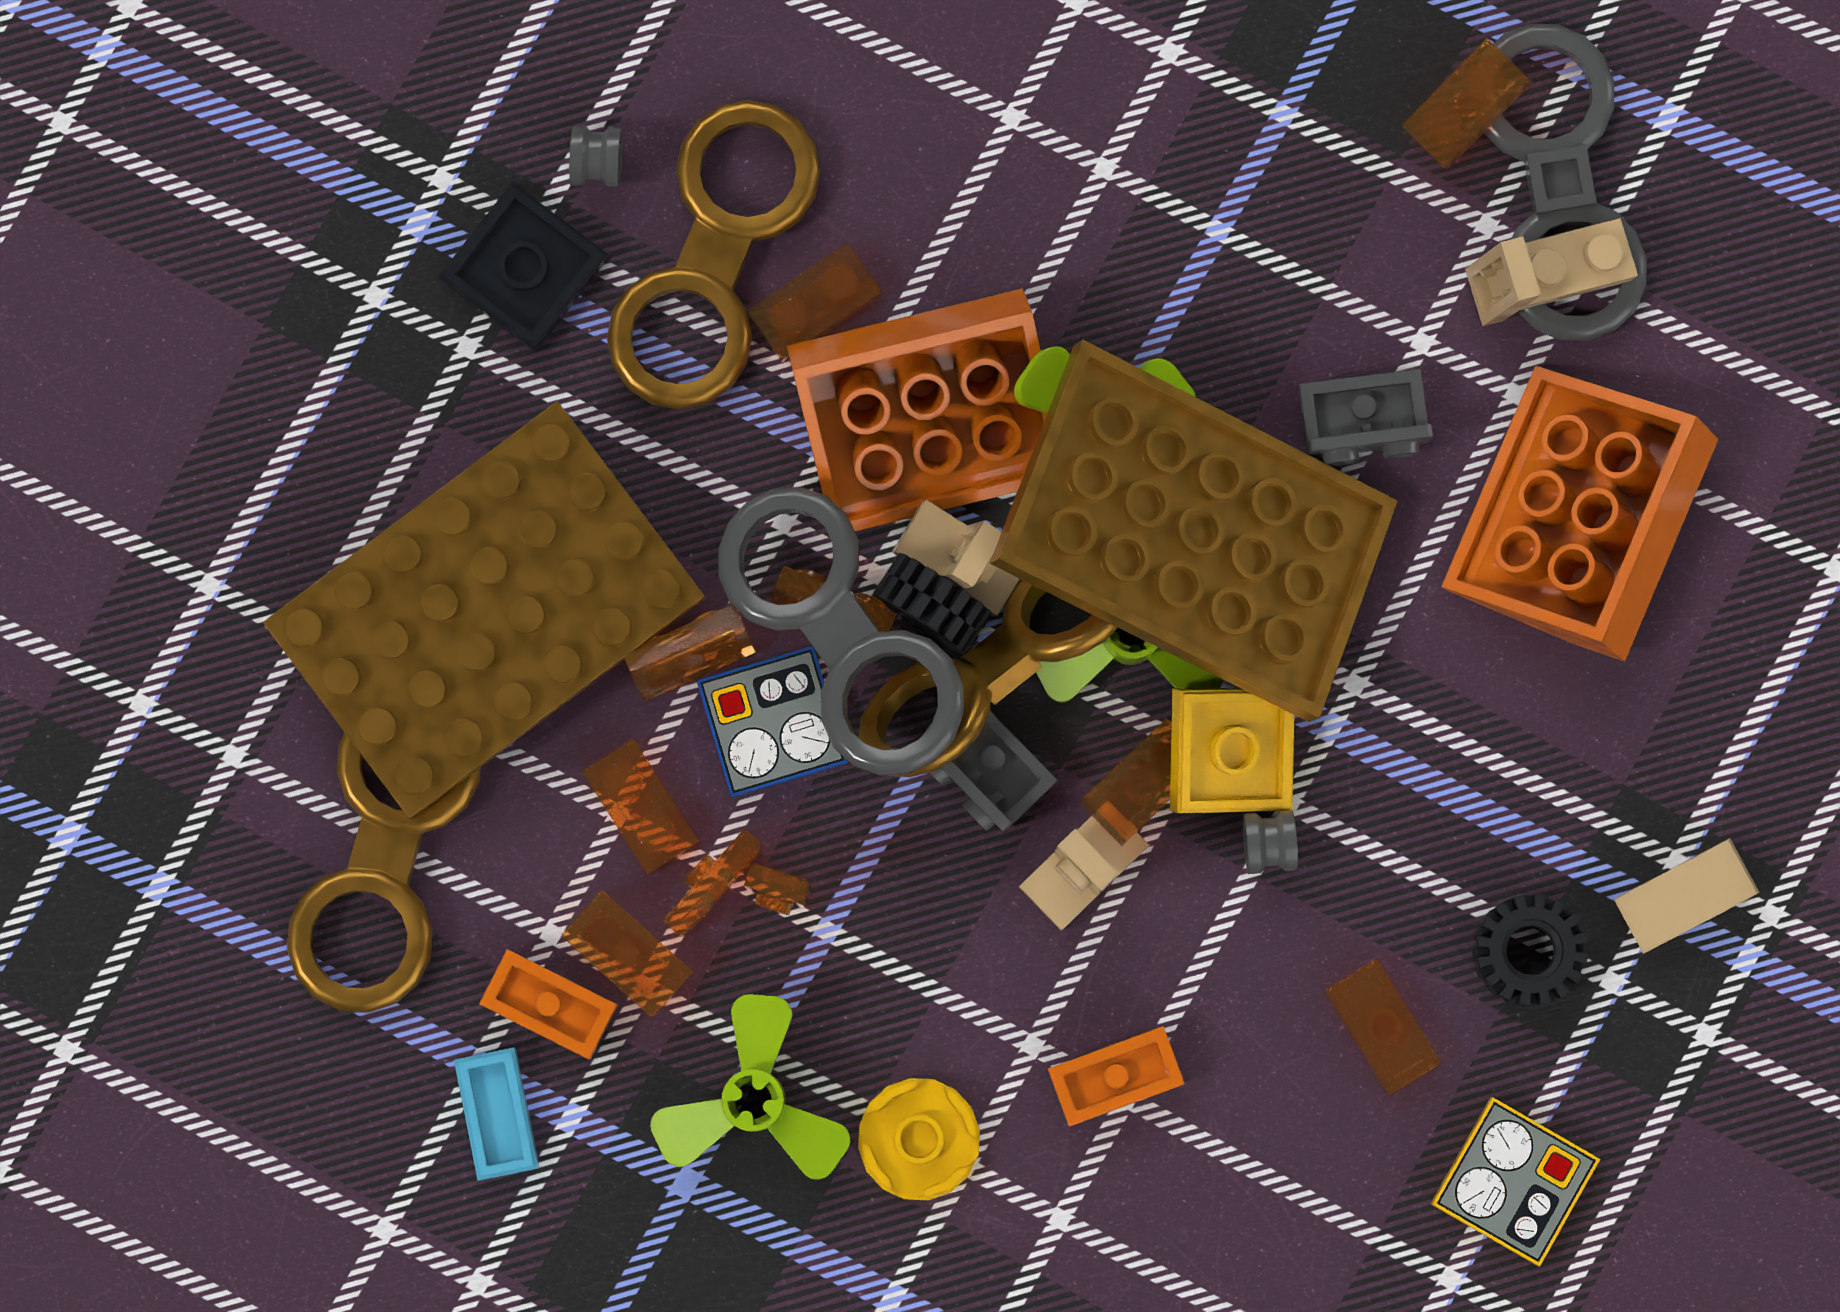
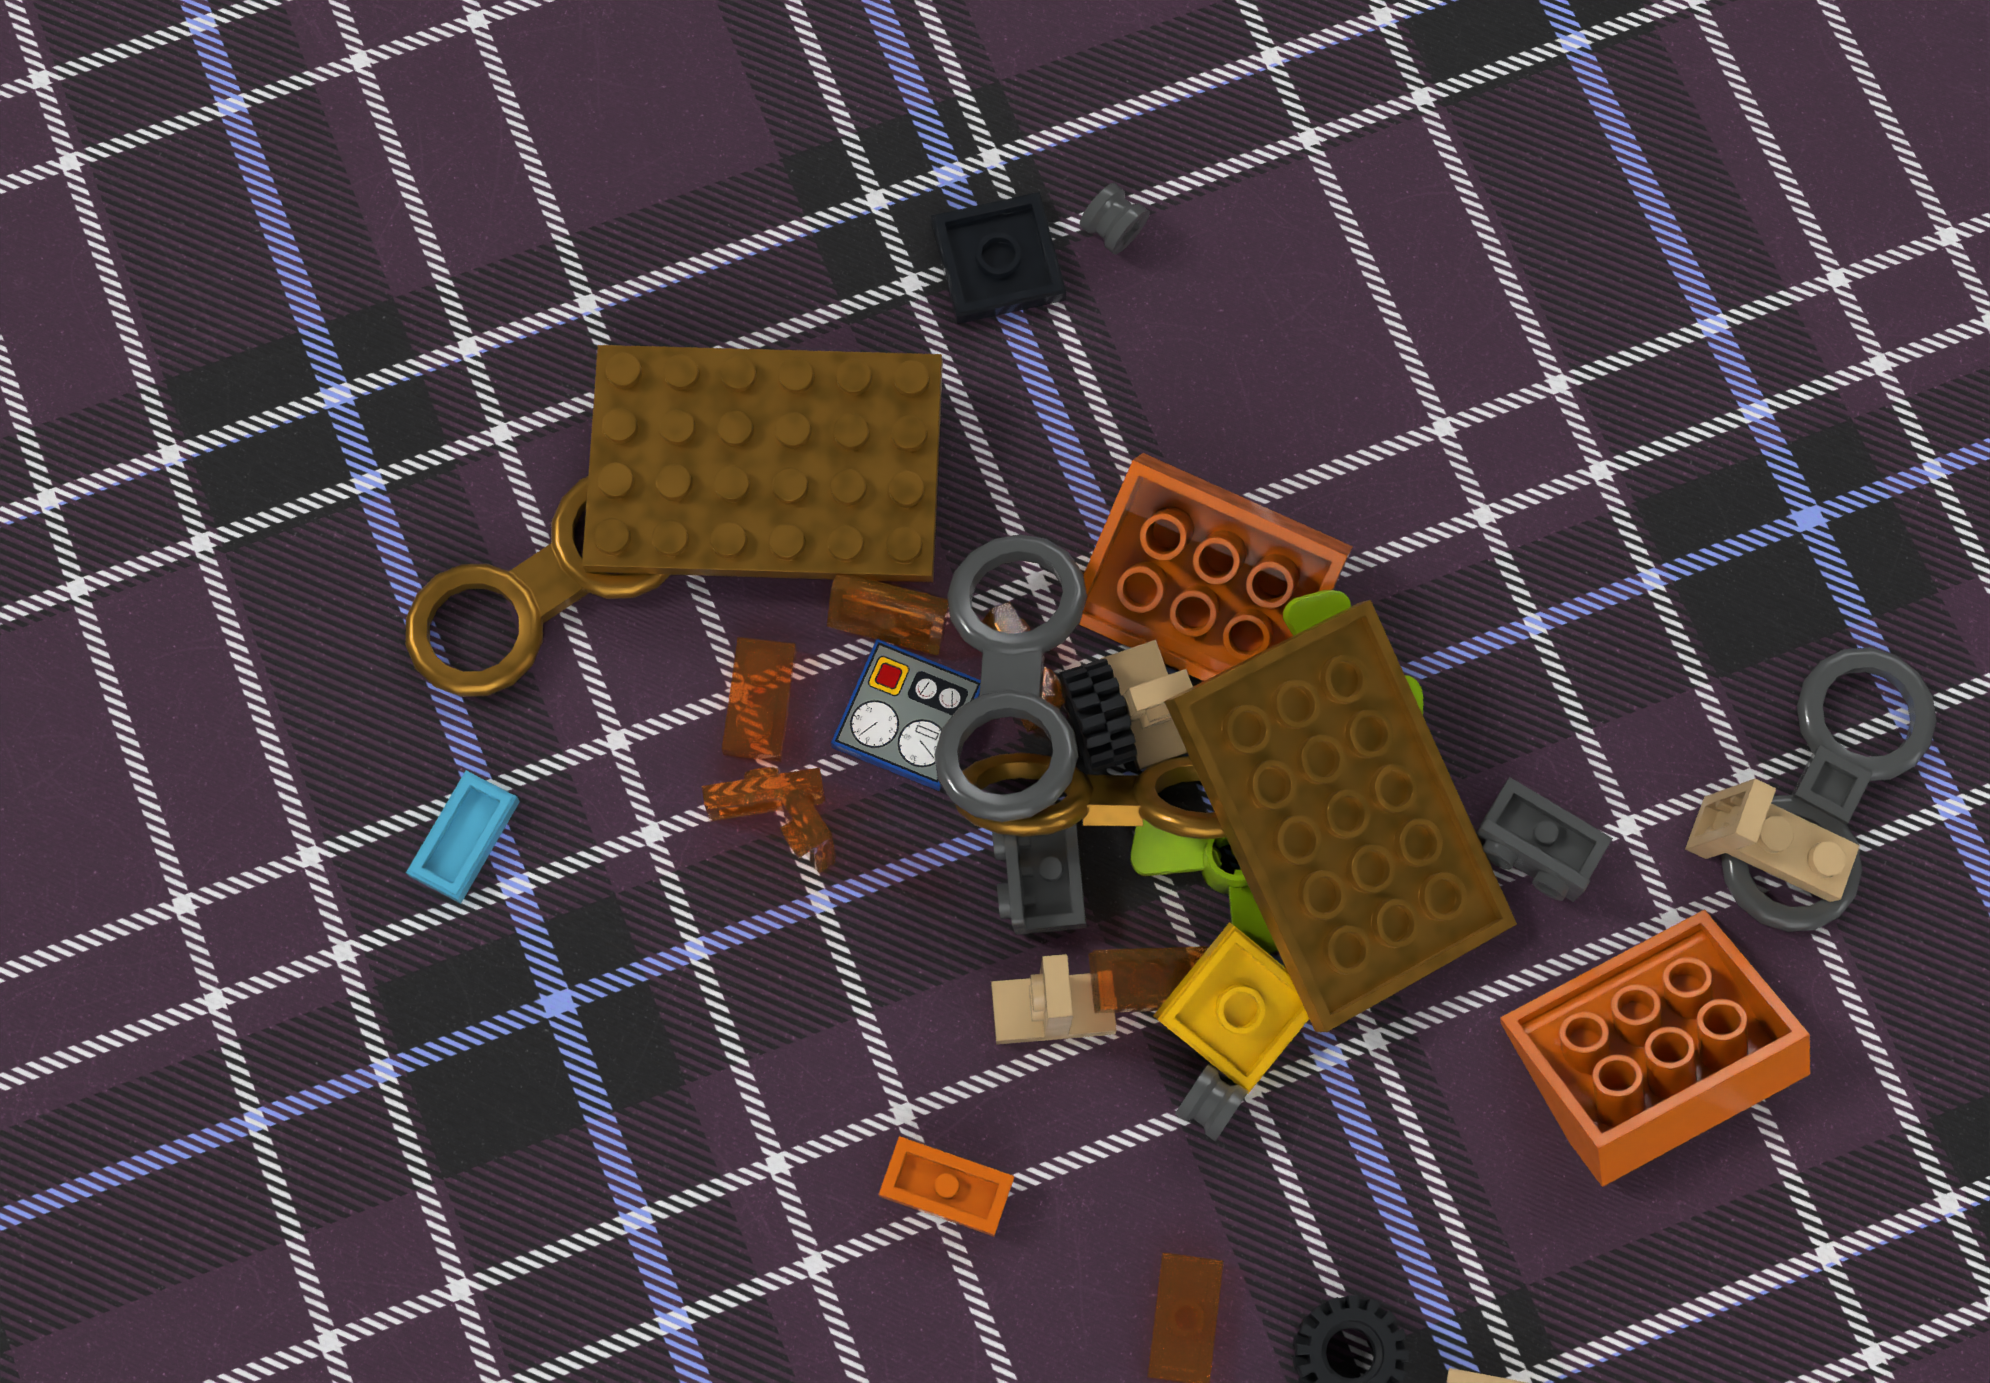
camera: 35 degrees right, 10 degrees down
(548, 1004) = (568, 785): orange plate -> none
(627, 954) = (657, 795): clear orange plate -> none
(692, 1128) = (592, 961): lime piece -> none
(713, 254) = (1142, 352): pearl gold bar -> none
(815, 301) = (1192, 441): clear orange plate -> none
(919, 1139) = (757, 1112): yellow tile -> none
(1467, 103) = (1802, 673): clear orange plate -> none

